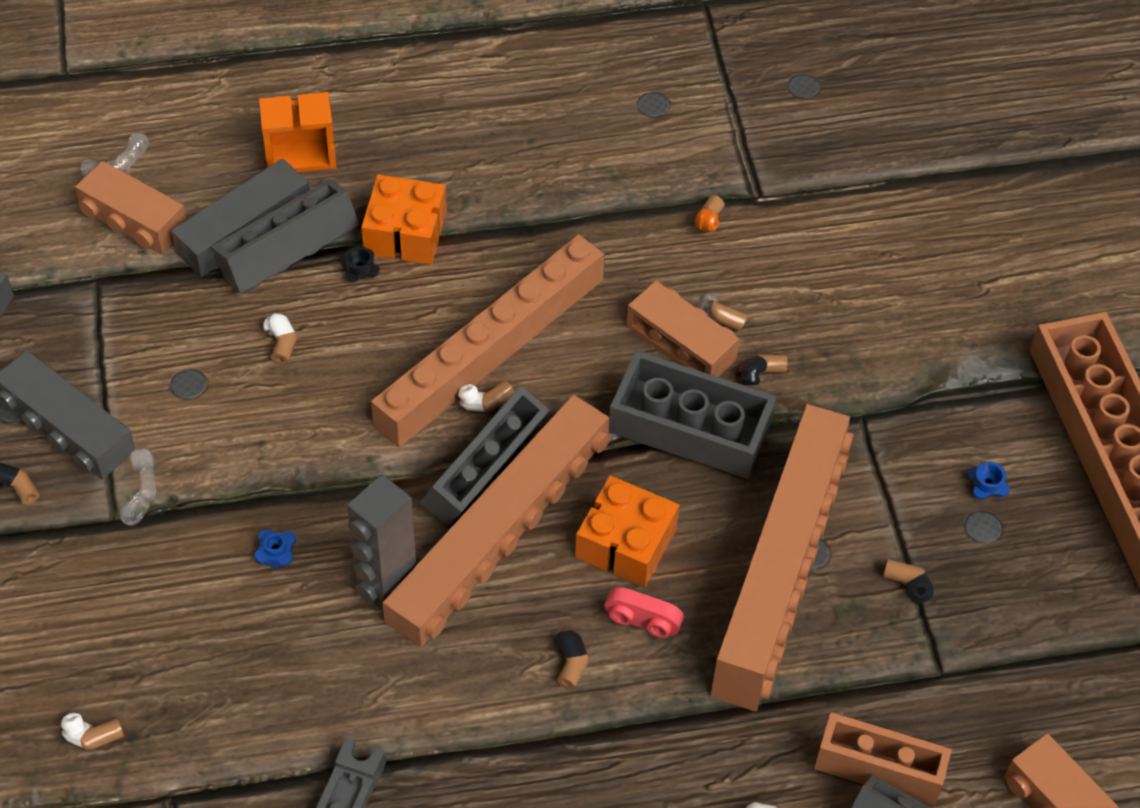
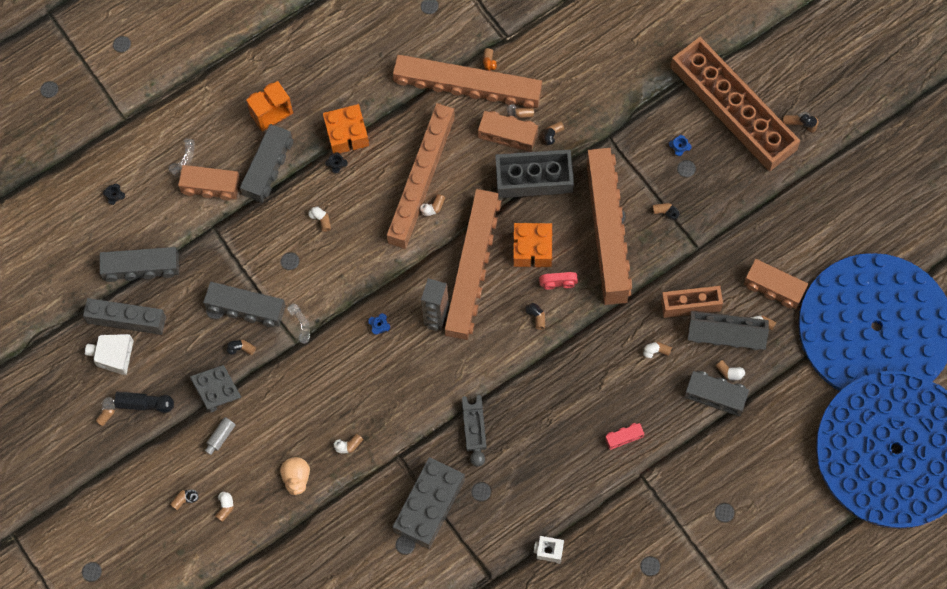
camera: 20 degrees left, 15 degrees up
(285, 236) = (295, 165): dark grey brick -> none
(484, 456) = (451, 237): dark grey brick -> none
(656, 231) = (467, 81): none -> nougat brick

